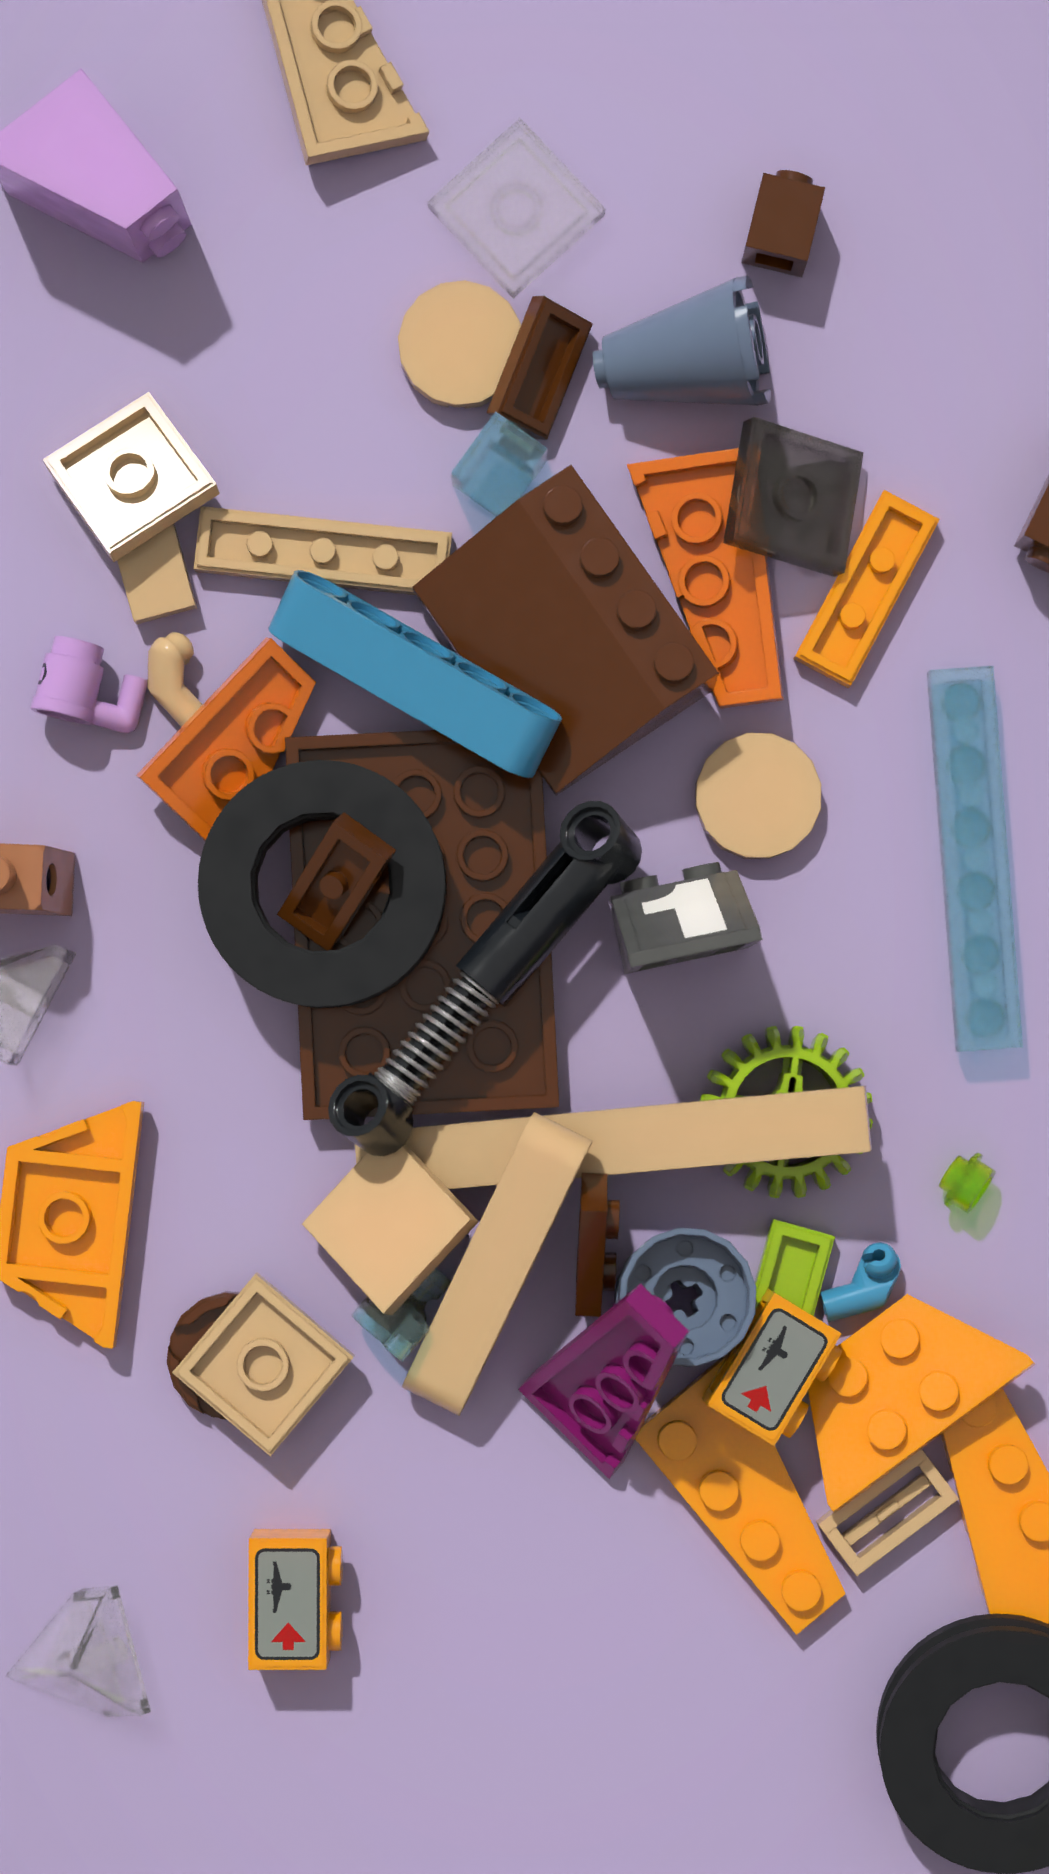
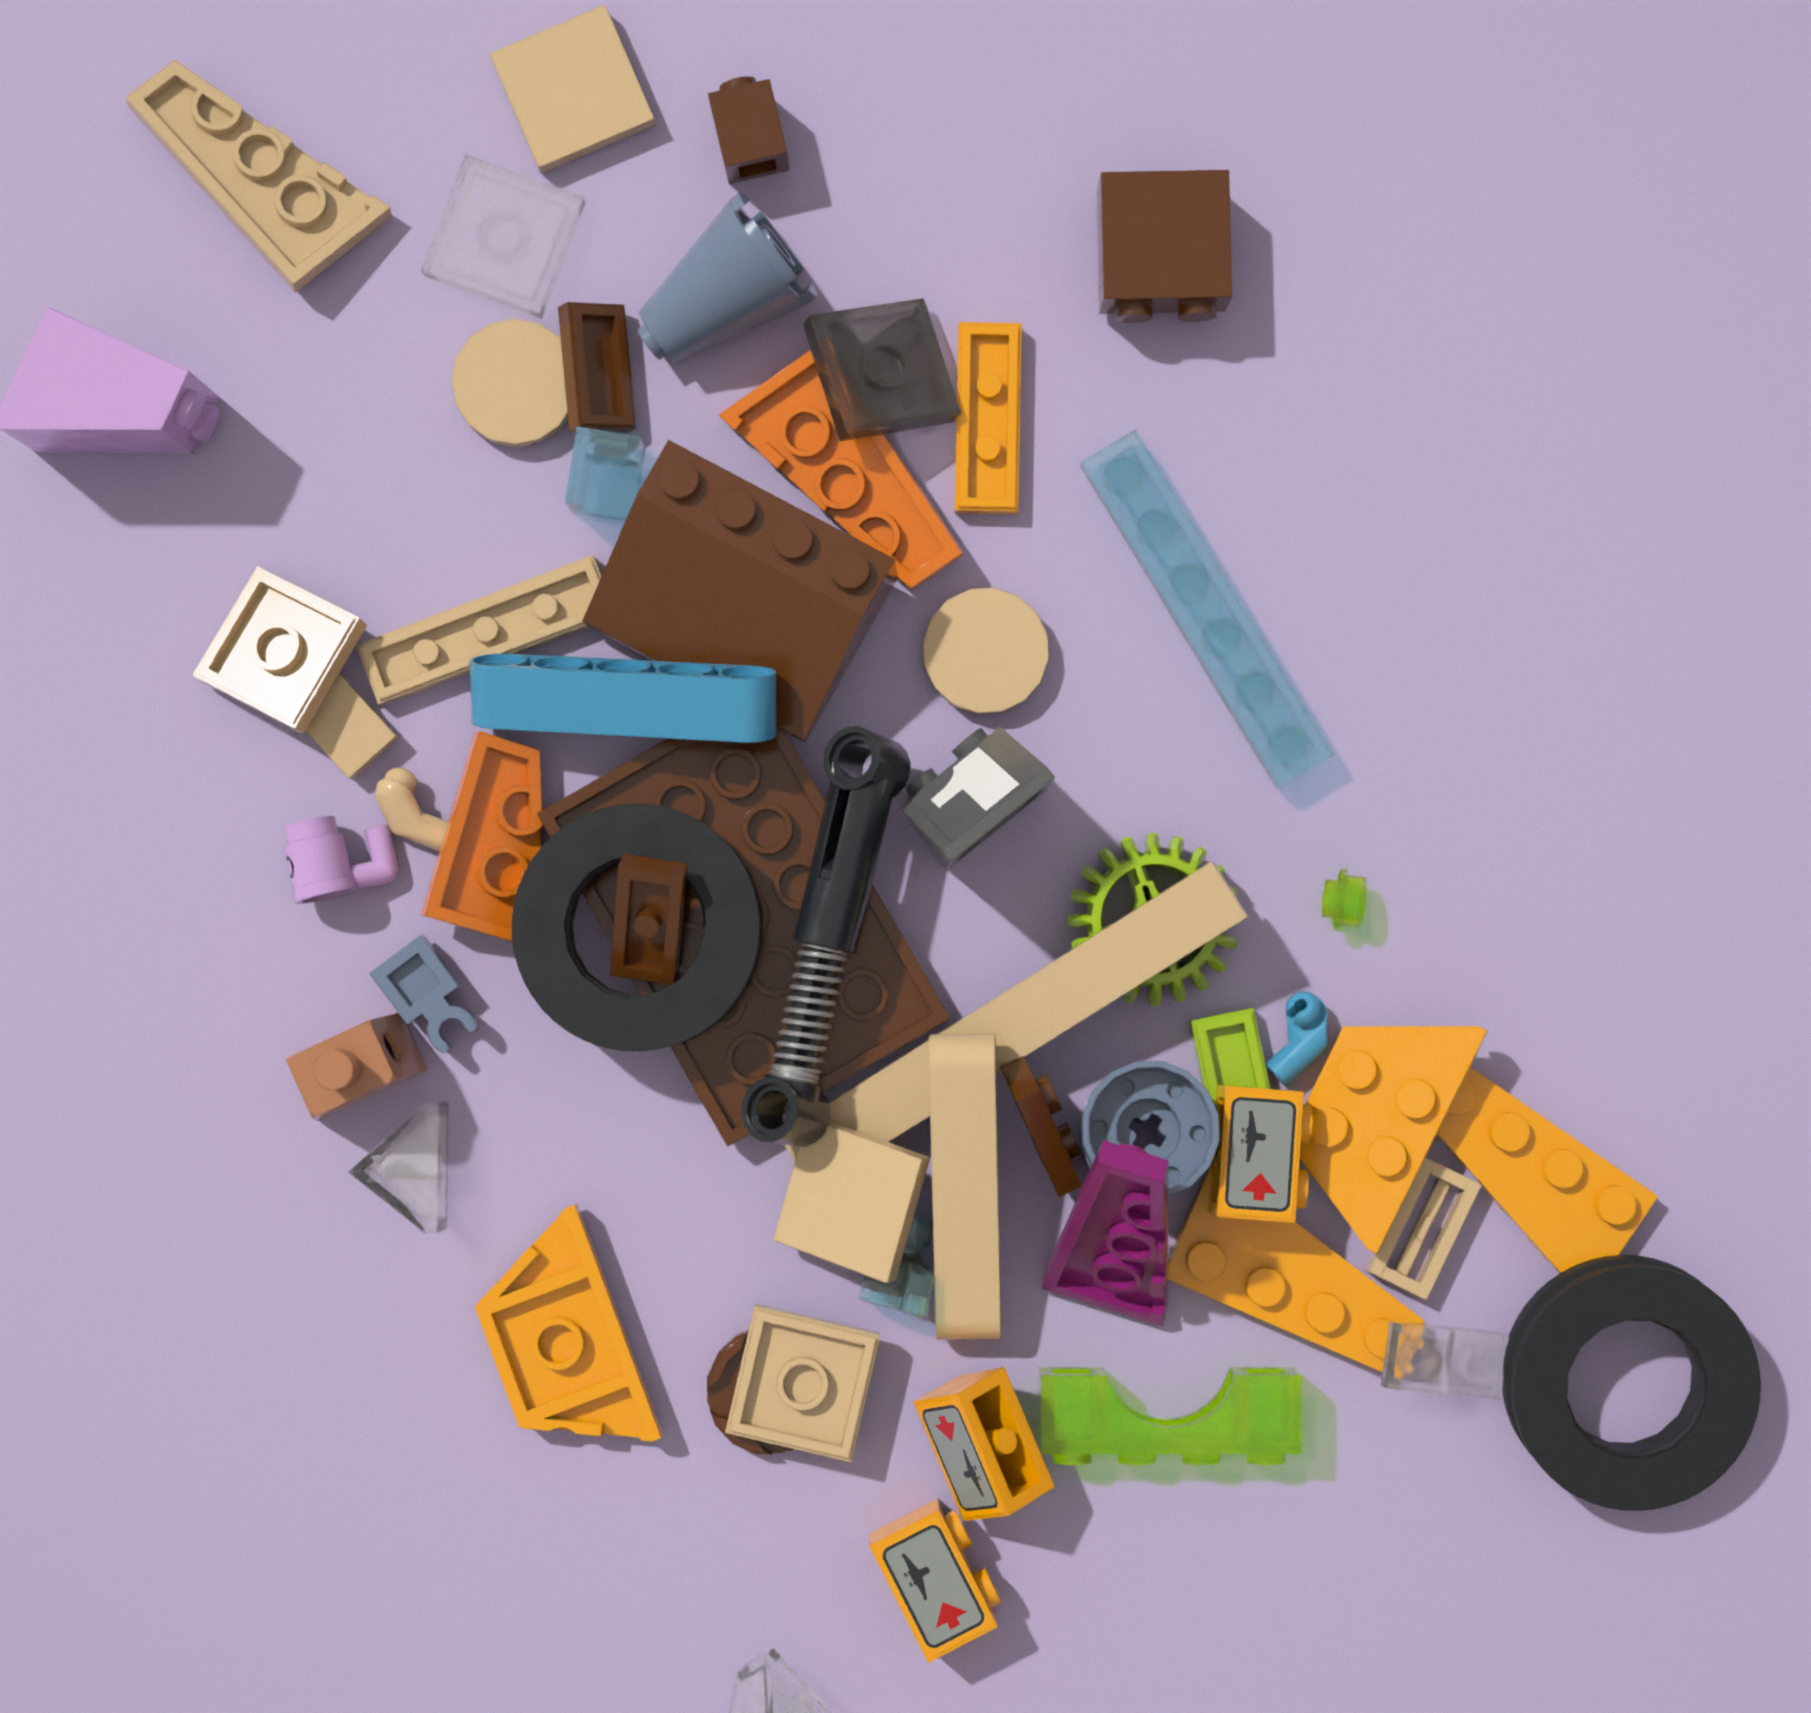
camera: 30 degrees left, 0 degrees up
(103, 837) = (419, 986): none -> sand blue plate
(396, 1501) = (984, 1444): none -> light orange brick
(645, 107) = (572, 89): none -> tan tile
(647, 1597) = (1250, 1415): none -> clear neon green arch
(845, 1638) = (1444, 1360): none -> clear slope

